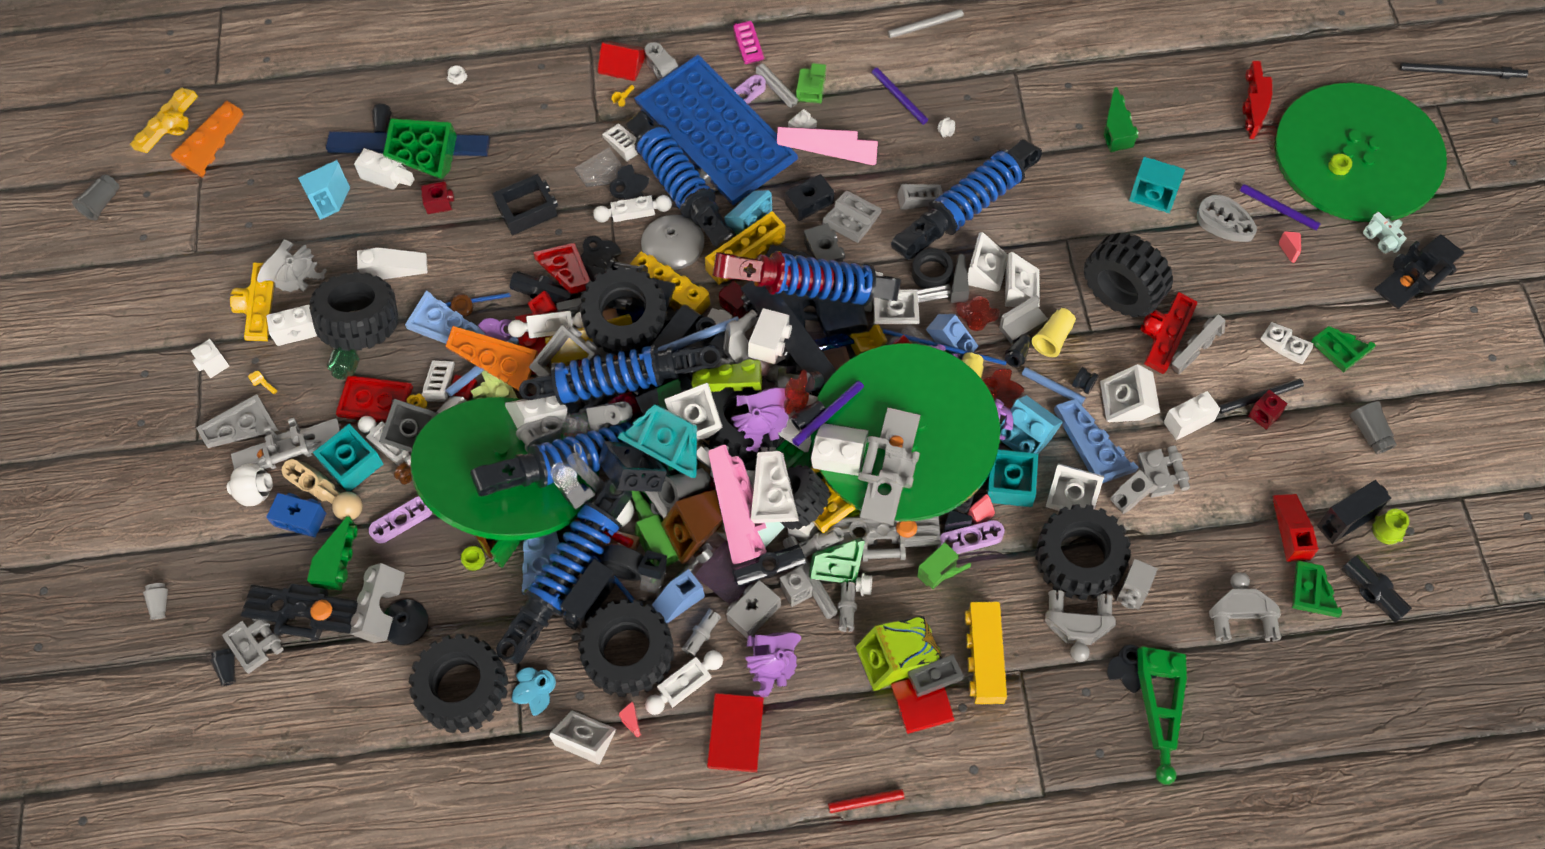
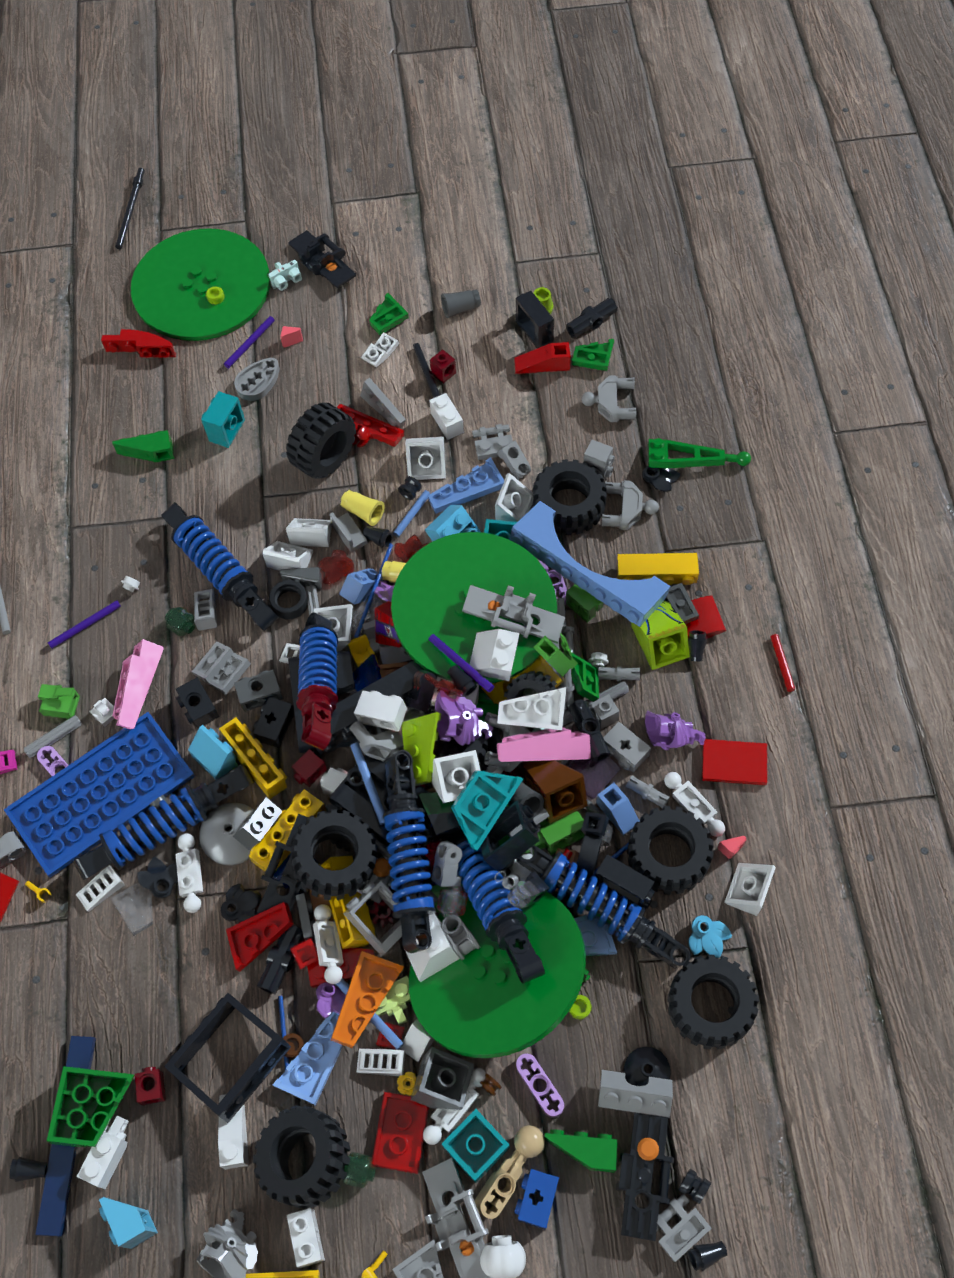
camera: 90 degrees left, 0 degrees up
(285, 660) = (694, 1186): none -> black wheel
(453, 286) = (253, 1075): none -> black window
(531, 217) = (181, 1004): black window -> none
(672, 255) = (257, 823): none -> brick
(843, 514) = (559, 661): none -> bright green piece
(884, 693) = (697, 642): none -> black cone
(903, 172) = (180, 621): none -> clear green head
(931, 611) = (630, 598): none -> medium blue arch

